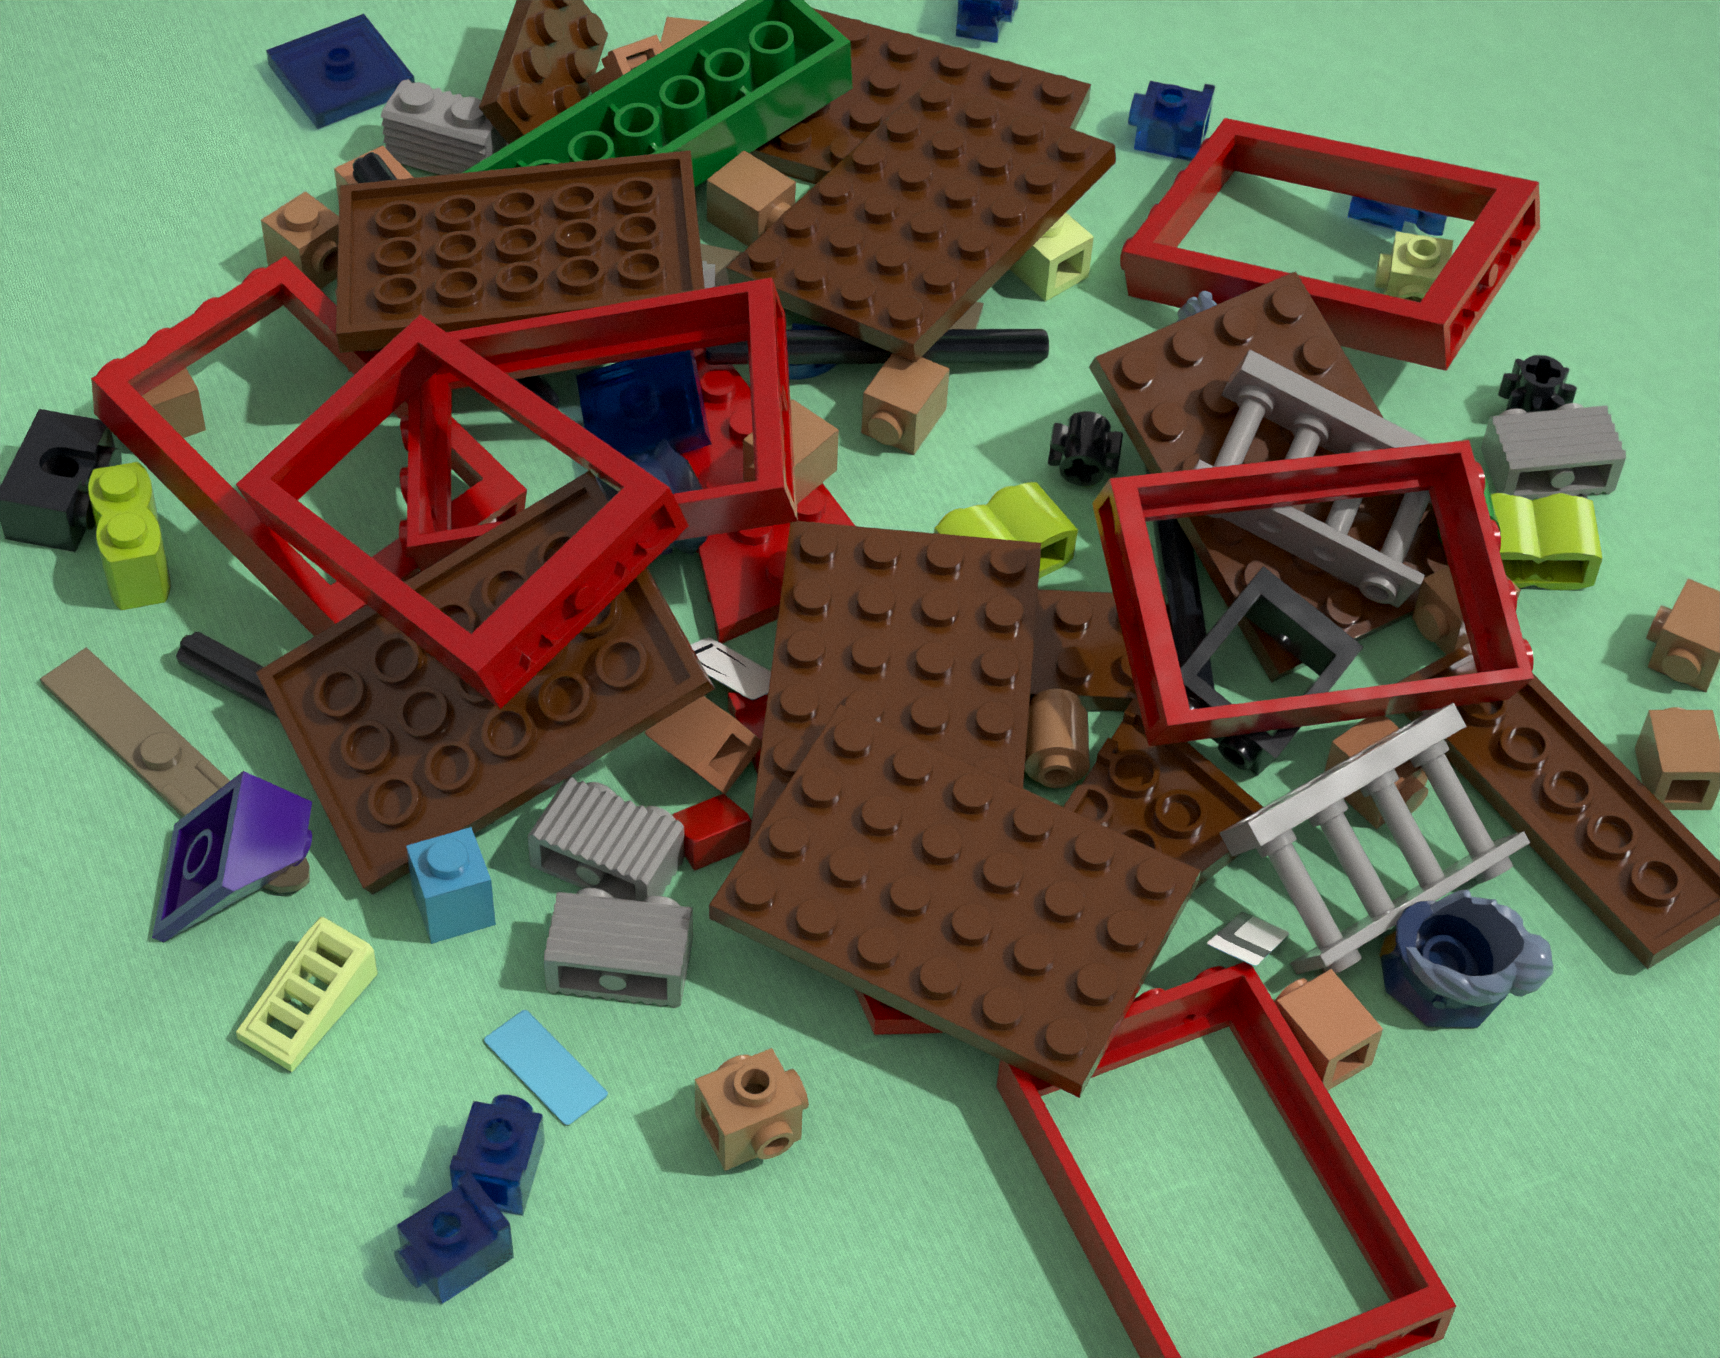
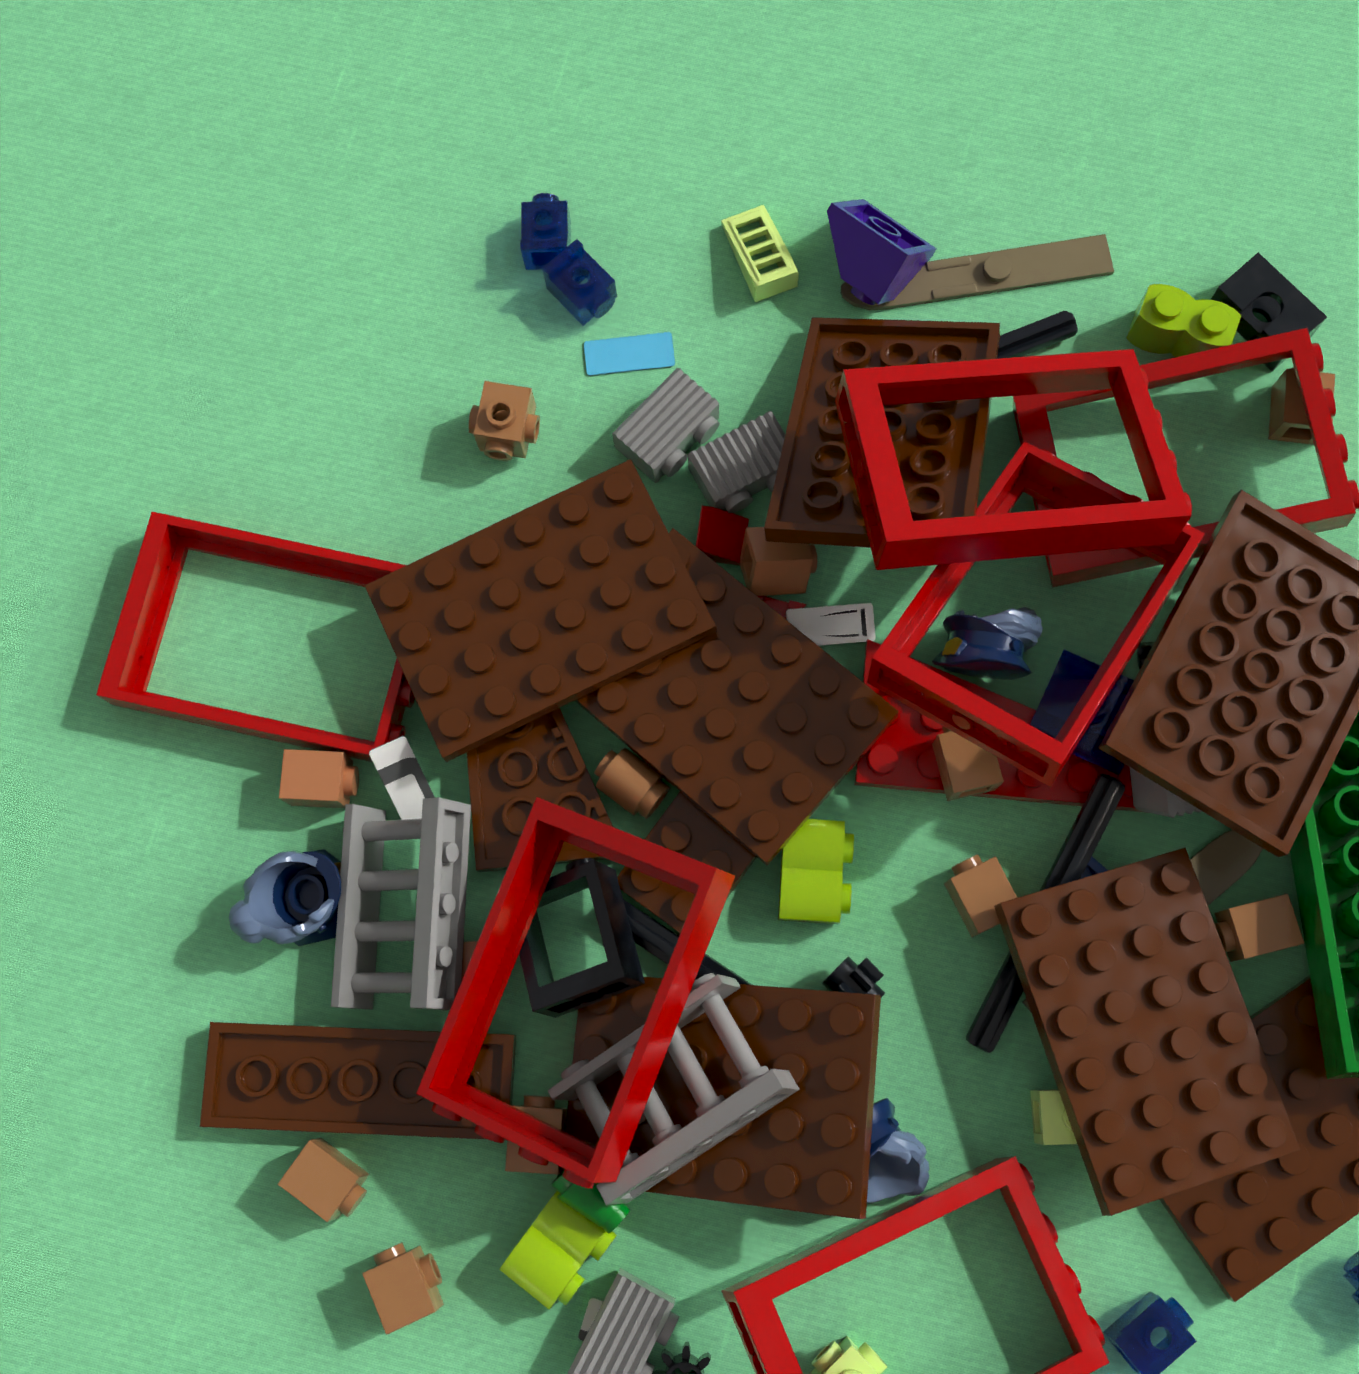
camera: 135 degrees right, 25 degrees up
(451, 885) = (773, 357): dark azure brick -> none

